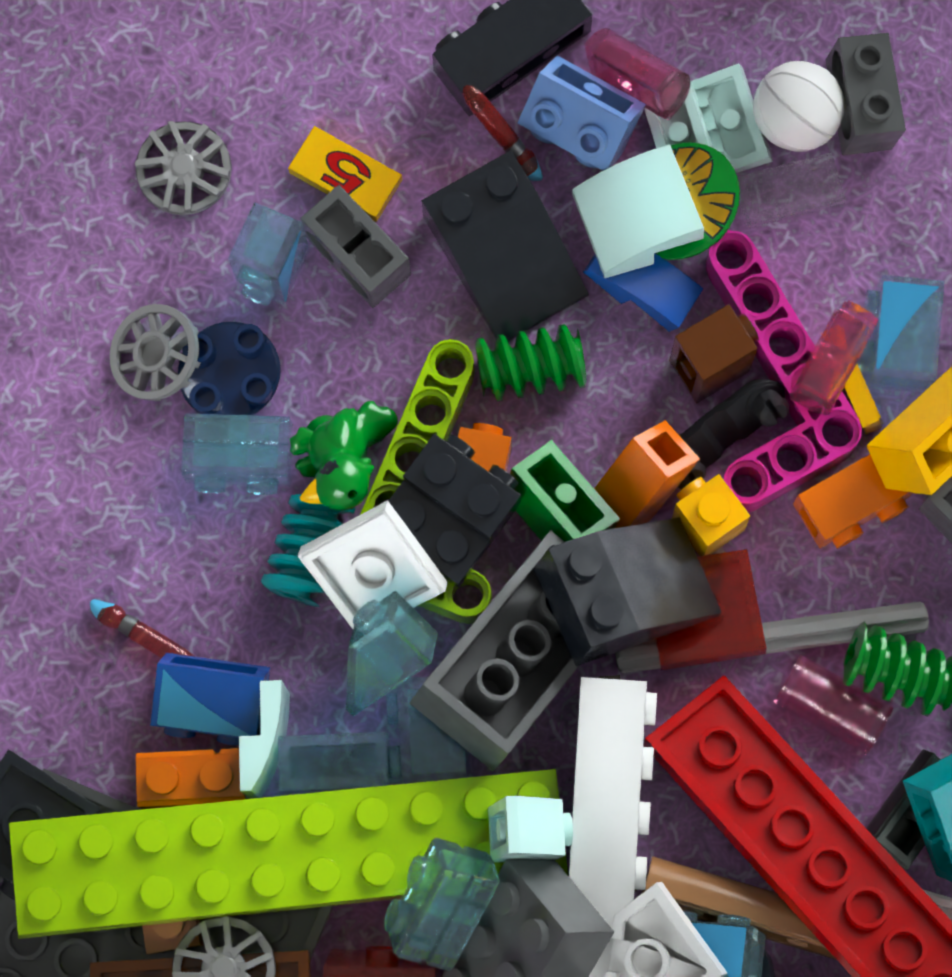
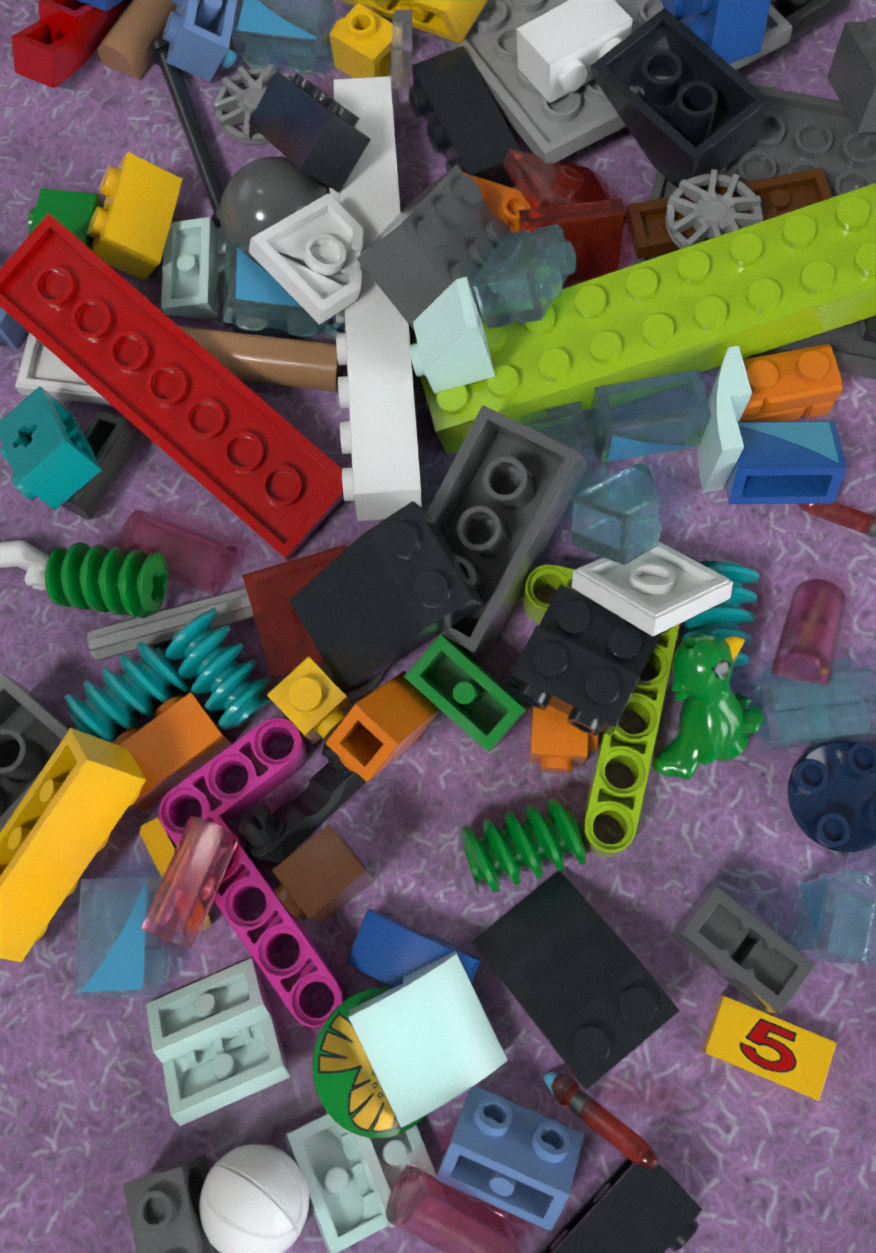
camera: 175 degrees right, 5 degrees down
(226, 515) = (811, 632): none -> clear pink brick
(794, 562) = (218, 671): none -> teal piece
(824, 240) = (216, 1042): none -> light aqua slope
(889, 554) = (125, 694): none -> teal piece

